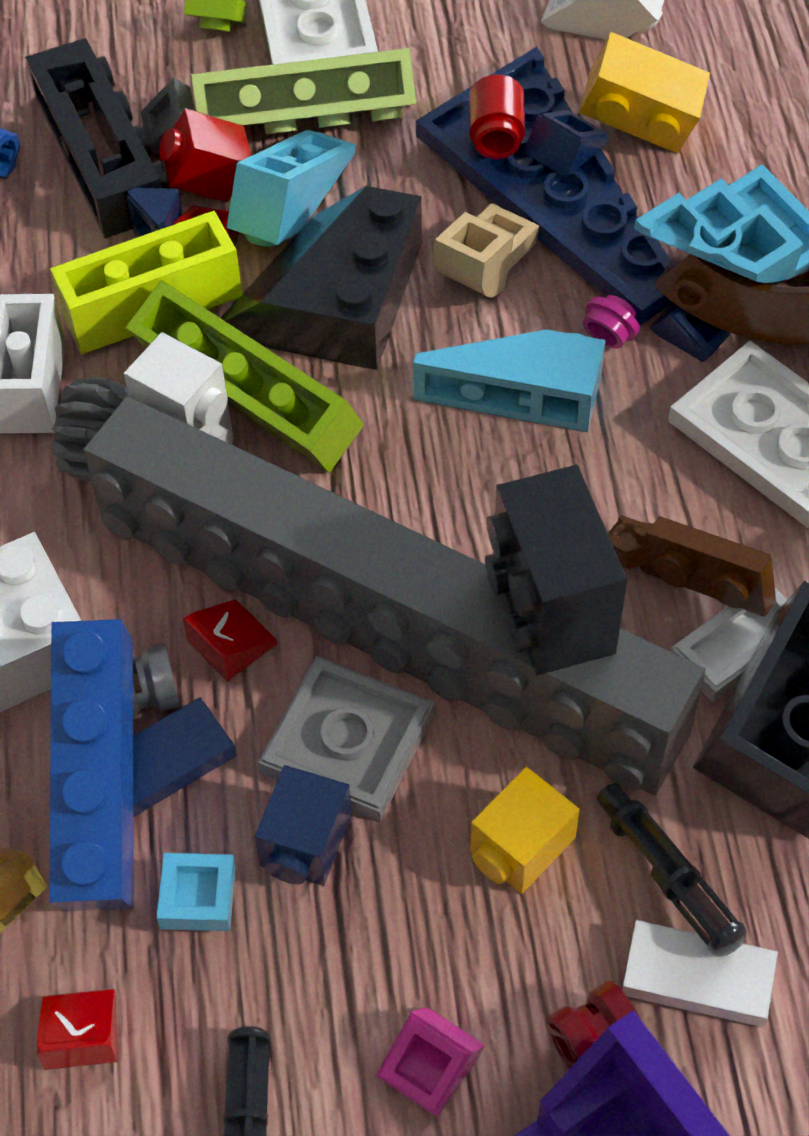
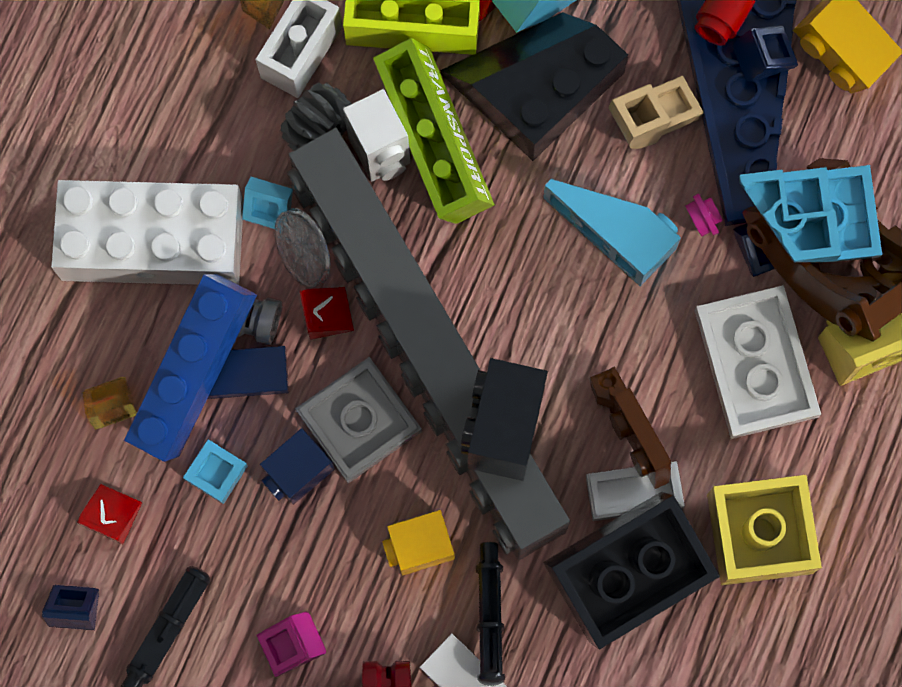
camera: 30 degrees right, 20 degrees up
(83, 549) = (265, 202): none -> medium azure plate
(158, 567) = (302, 247): none -> clear wheel

